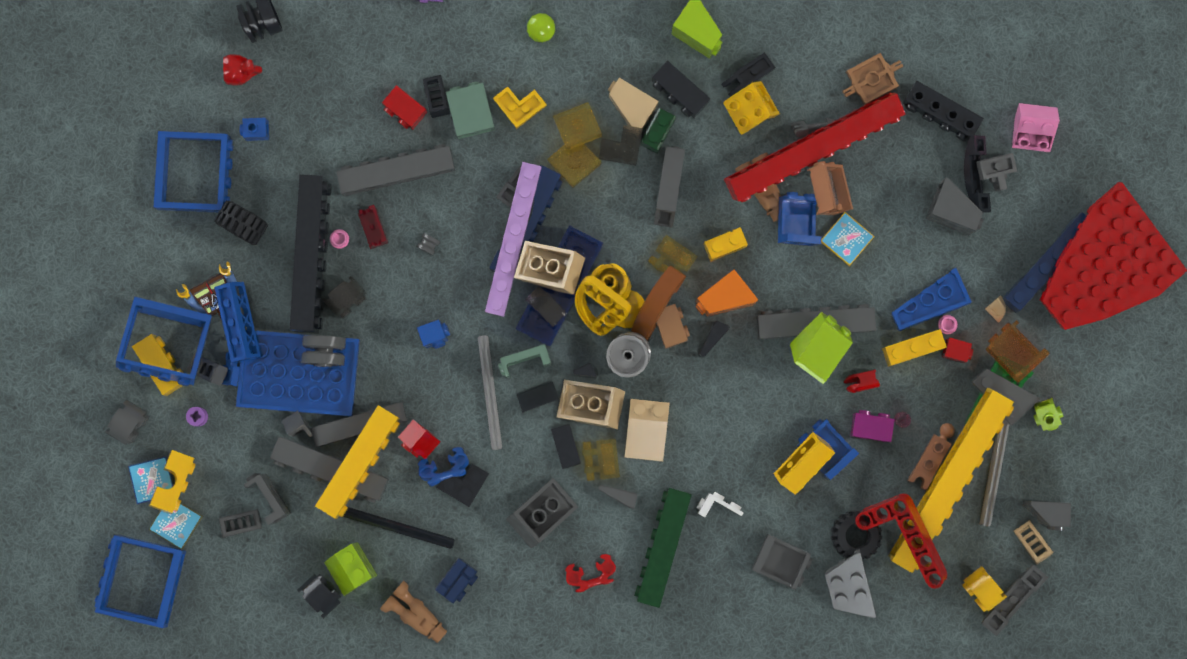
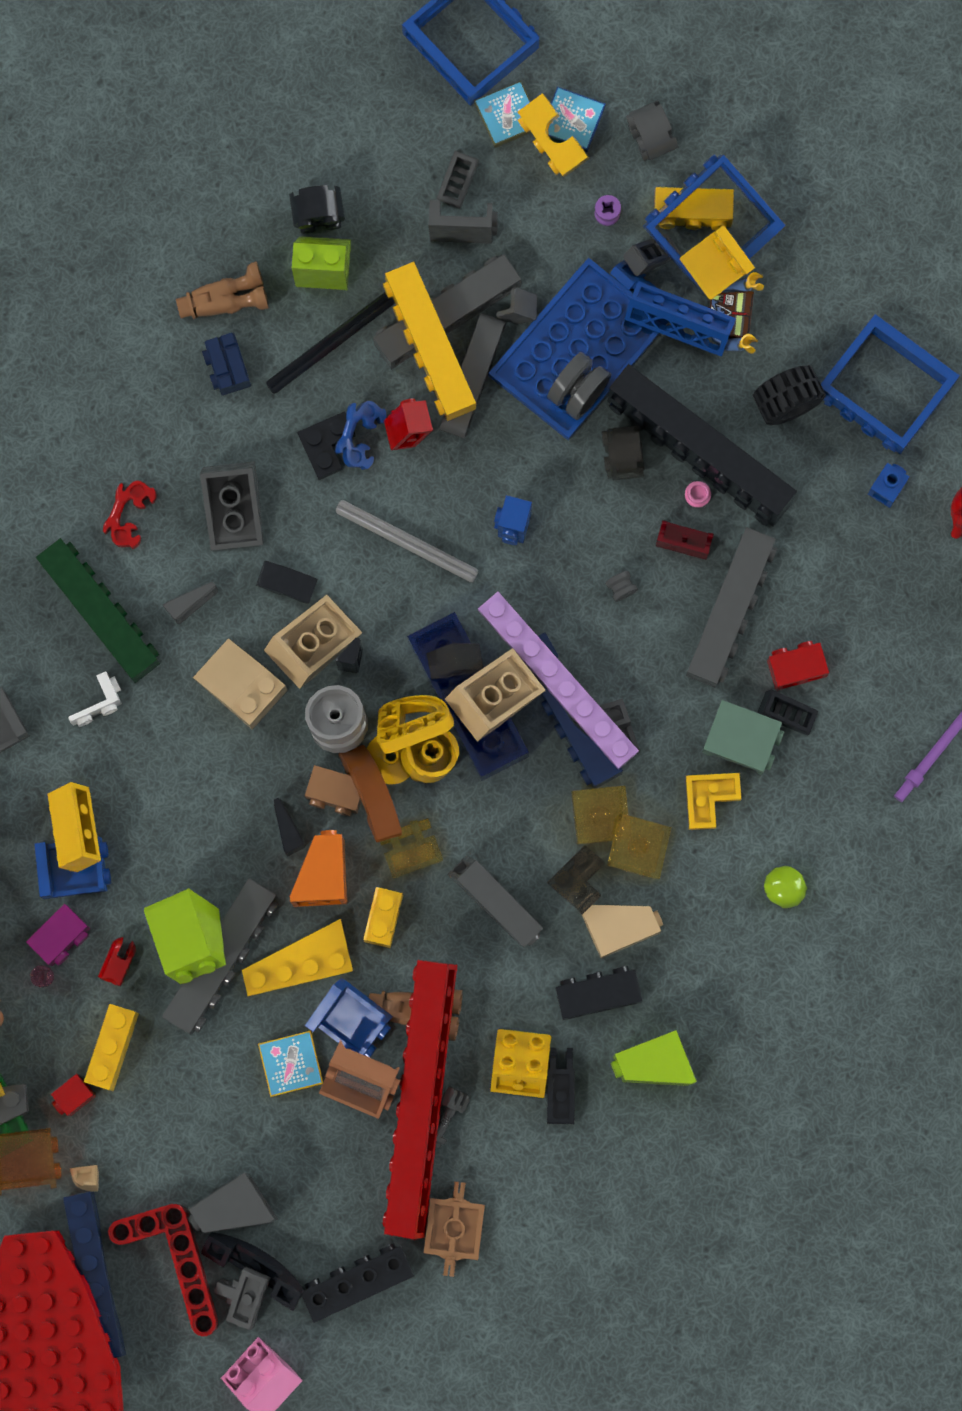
camera: 125 degrees right, 5 degrees down
(187, 321) = (716, 262): none -> yellow bracket
(537, 397) = (363, 589): black slope -> none
(539, 351) = (408, 624): sand green panel -> none
(607, 459) = (240, 618): clear yellow plate -> none
(658, 130) = (568, 933): dark green brick -> none
(784, 274) = (307, 960): none -> yellow wing
(938, 299) = (147, 1112): blue wing -> none
(947, 324) = (110, 1107): bright pink plate -> none
(1001, 221) = (179, 1258): none -> red beam

